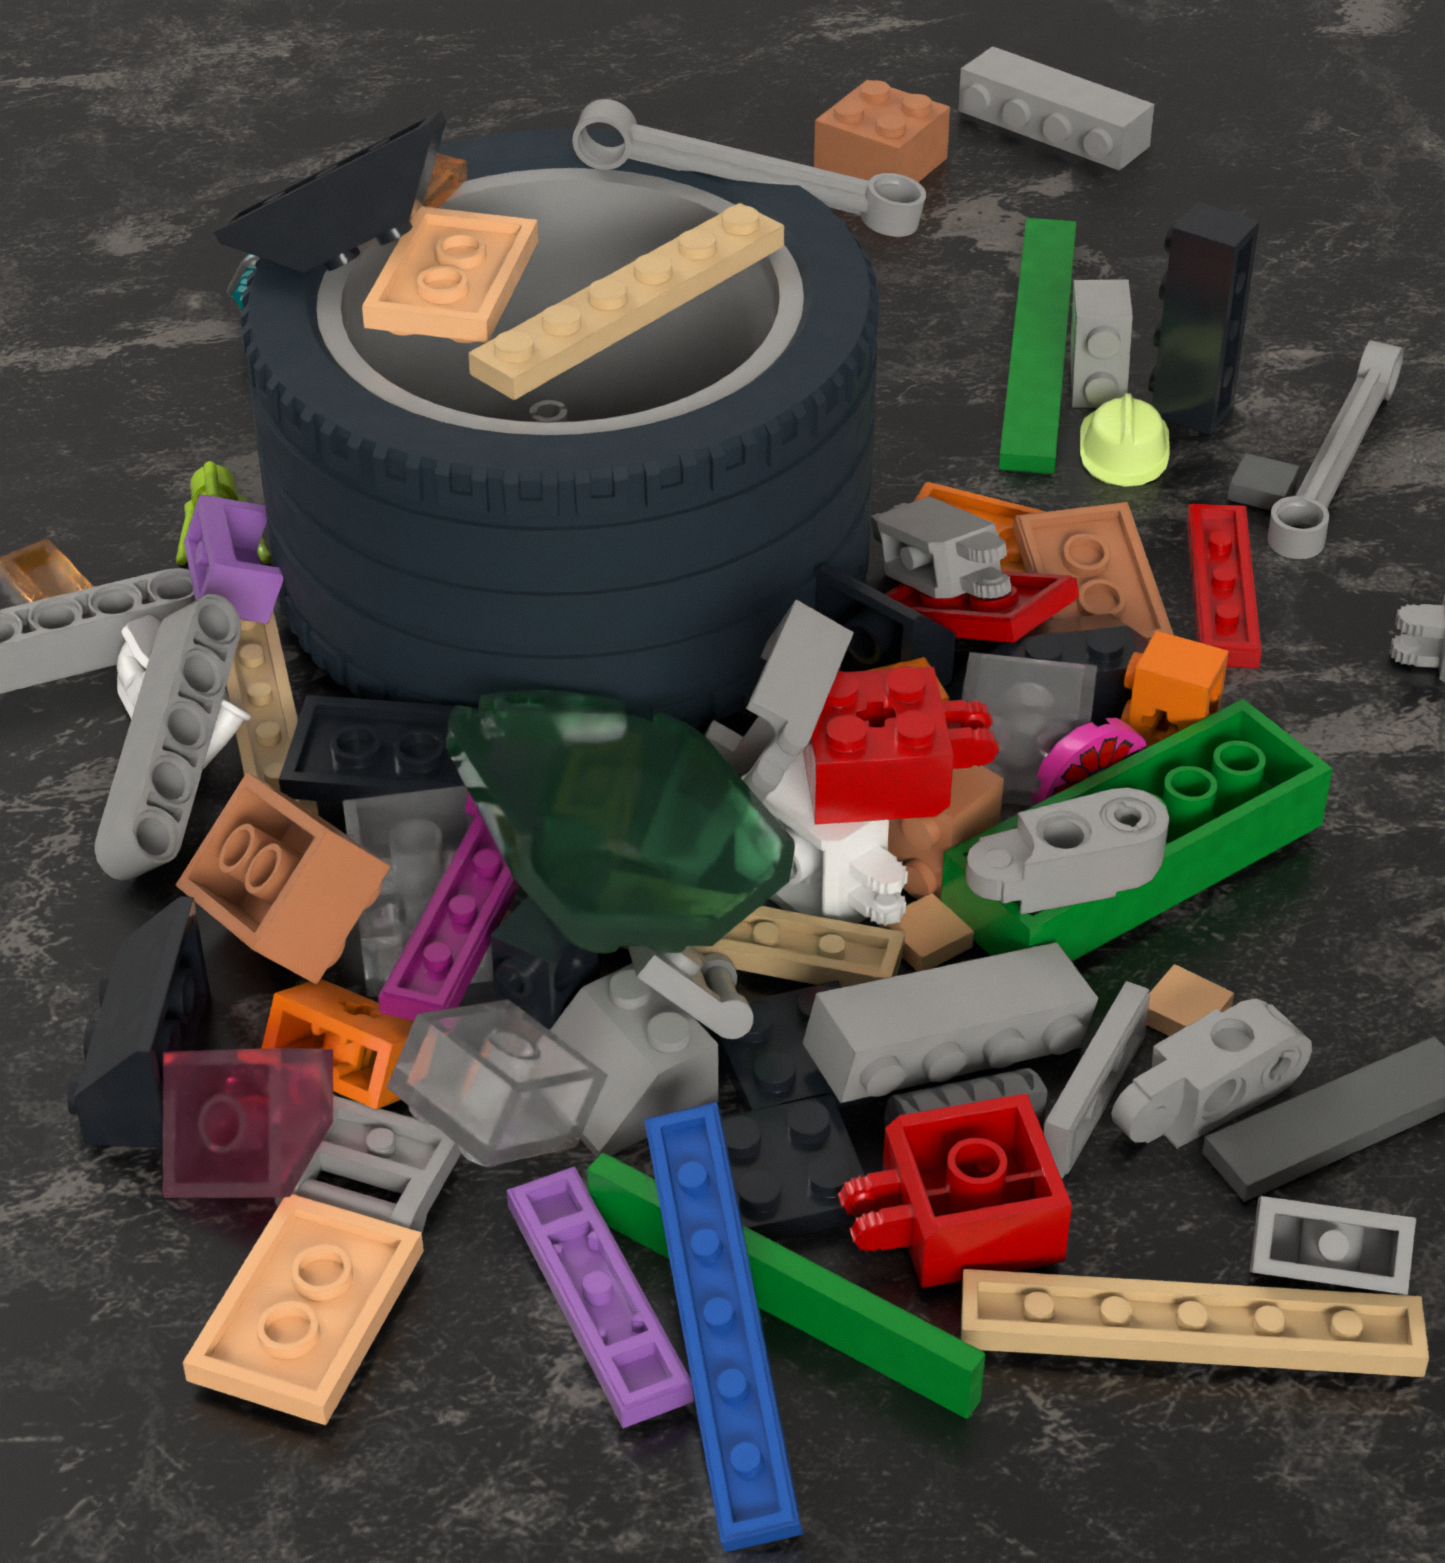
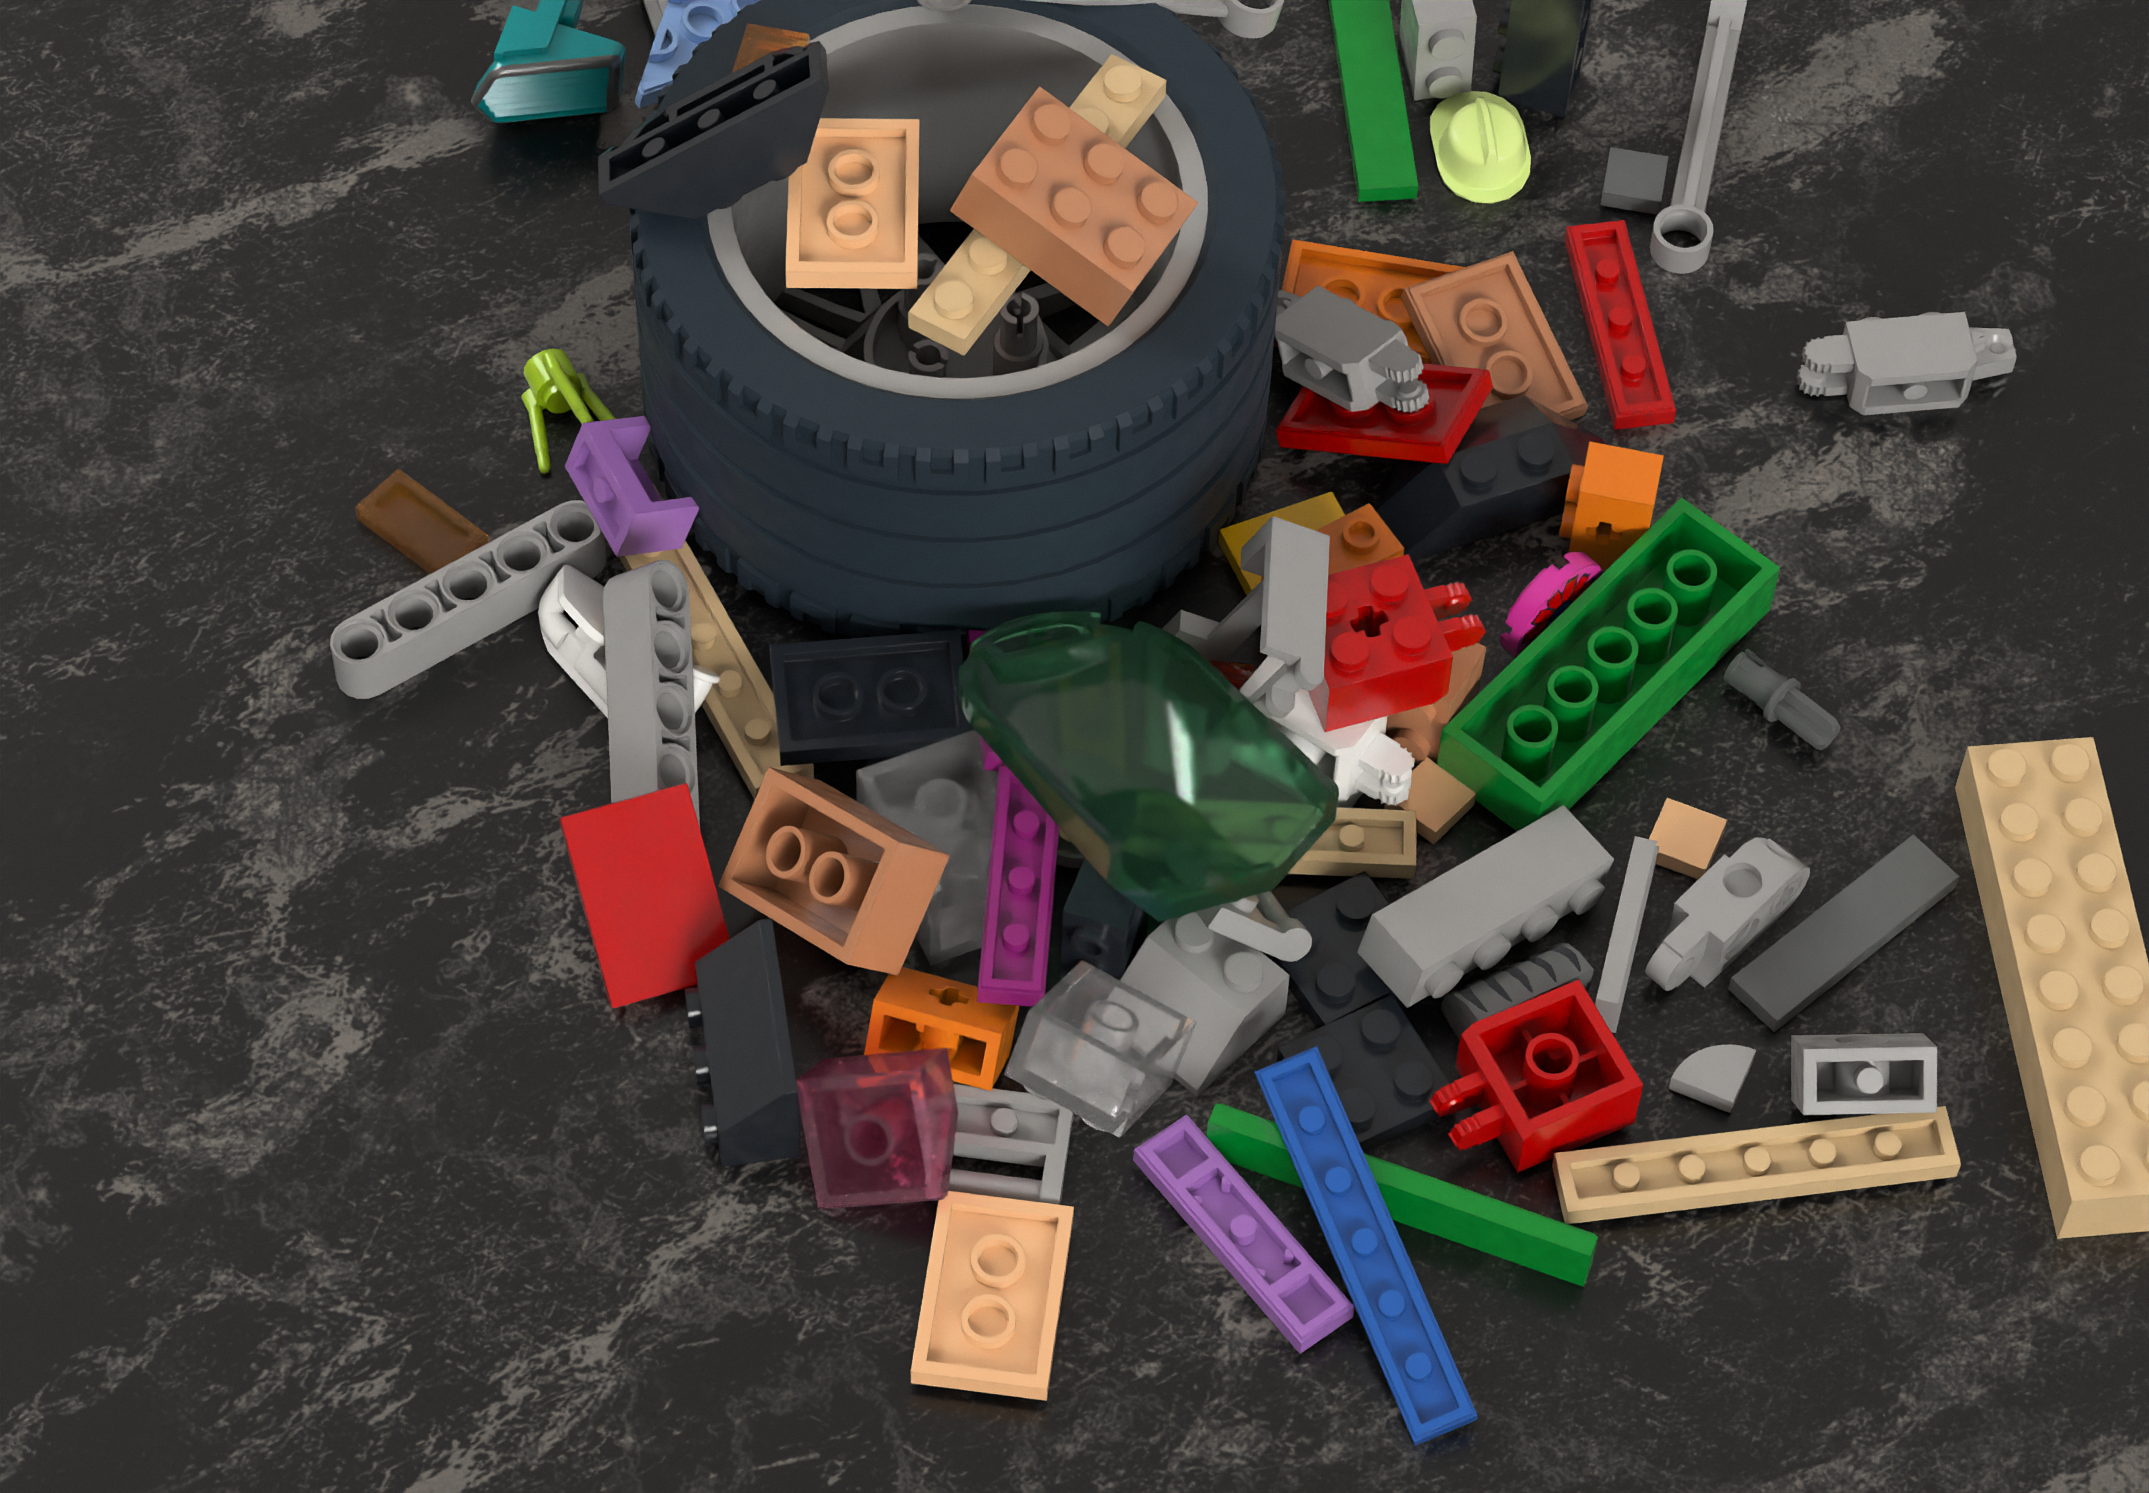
camera: 15 degrees left, 15 degrees up
(95, 870) = (645, 892): none -> red tile
(650, 281) = (1073, 206): none -> nougat brick
(882, 627) = (1308, 474): black slope -> none
(1031, 711) = (1486, 545): clear brick -> none
(1072, 851) = (1584, 698): light grey piece -> none
(1166, 1229) = (1714, 1075): none -> light grey tile
(1316, 898) = (1781, 699): none -> dark grey axle

